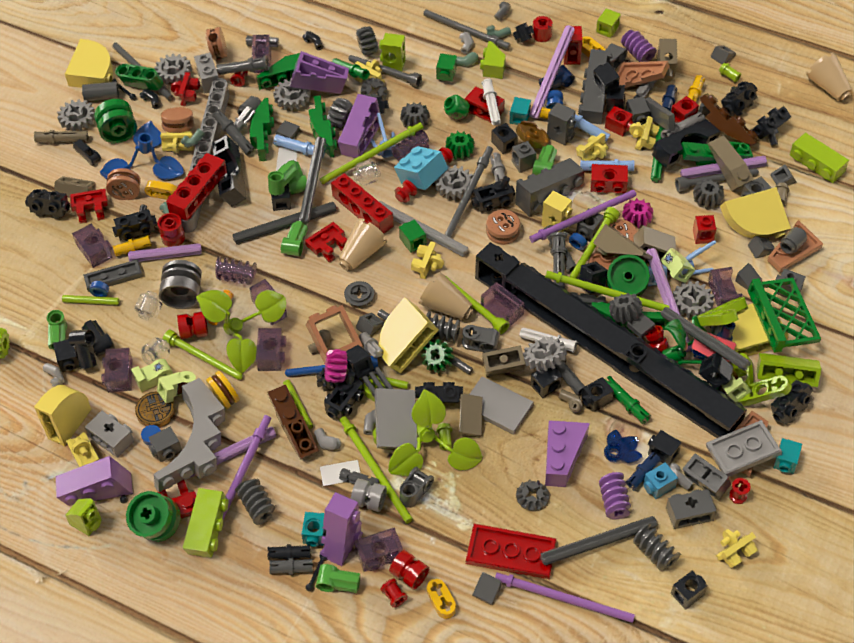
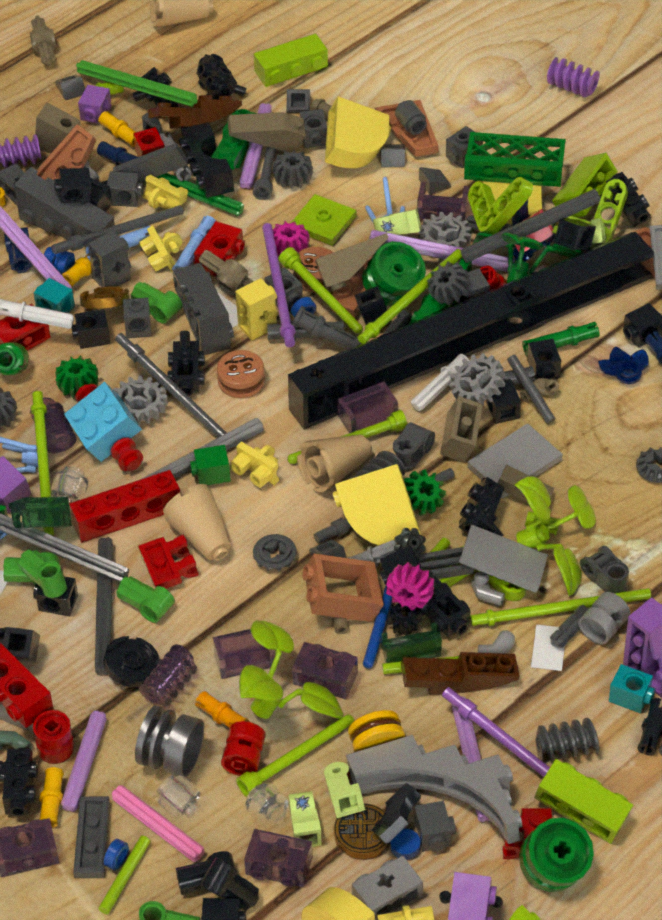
camera: 70 degrees left, 5 degrees down
(129, 303) = (158, 823): none -> bright pink axle
(173, 420) = (396, 813): none -> black tile
(243, 247) = (130, 660): none -> black tile
(307, 390) = (417, 645): none -> clear green hinge
(328, 162) = (41, 512): none -> clear green hinge
(380, 358) = (411, 538): none -> pearl dark grey plant
(497, 168) = (150, 352): light grey pin -> none
(562, 393) = (531, 389): none -> dark grey bar
(563, 448) = (614, 415): medium lavender wedge -> none
(565, 100) = (77, 242): none -> dark grey bar
(585, 190) = (229, 273): none -> dark tan axle
(618, 121) = (128, 207): red brick -> none
(650, 238) = (349, 233): dark tan brick -> none
(675, 224) = (325, 219): none -> lime plate
(704, 229) = (348, 188): red brick -> none
(709, 69) = (93, 103): none -> medium lavender brick
(731, 80) = (137, 83): none -> bright green axle
(754, 24) = (43, 40): none -> dark tan axle

